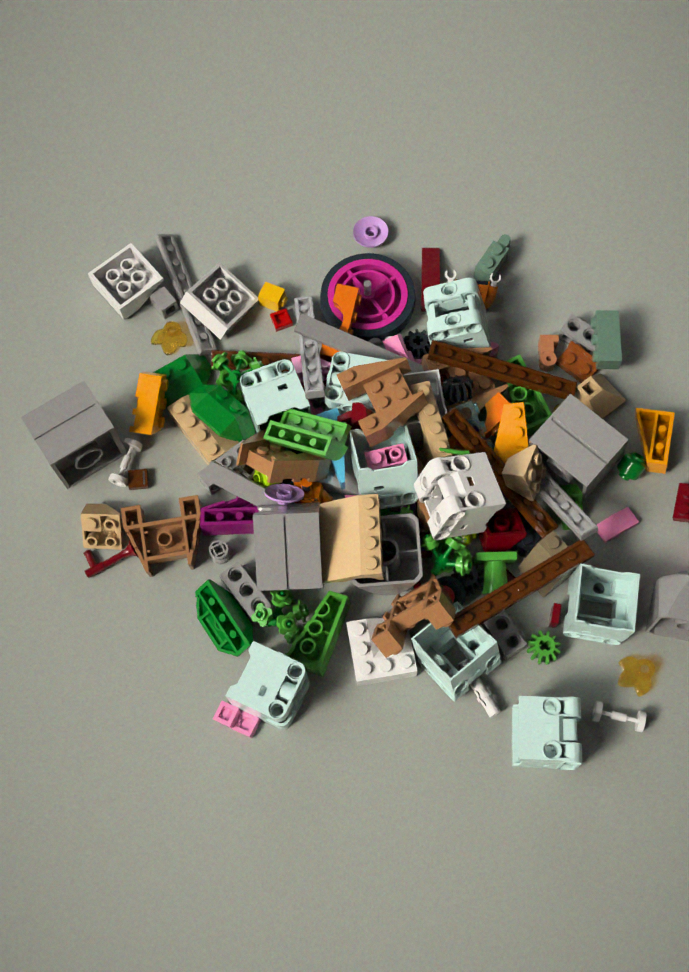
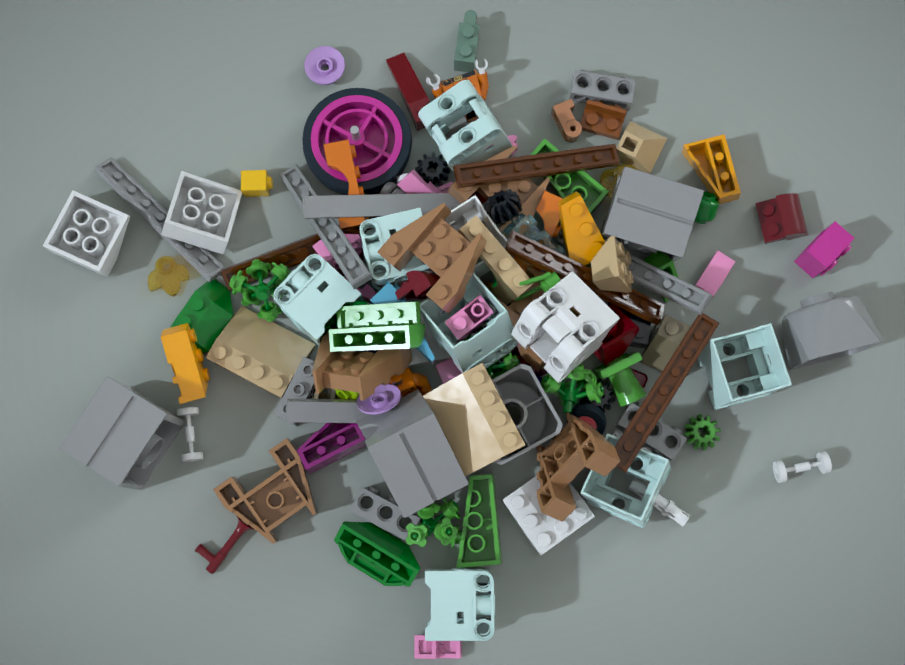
camera: 30 degrees left, 10 degrees up
(101, 527) = (200, 515): tan slope -> none
(138, 479) = (212, 445): reddish brown tile -> none
(164, 302) = (141, 239): light grey brick -> none
(221, 555) = (336, 484): light grey wheel -> none
(222, 412) = (266, 337): green wedge -> none
(281, 319) = (276, 203): red tile -> none
(546, 732) = (744, 523): light aqua piece -> none
(554, 615) = (698, 395): dark red tile -> none
(606, 339) = (624, 84): sand green brick -> none
(634, 677) = (797, 420): clear yellow plate -> none

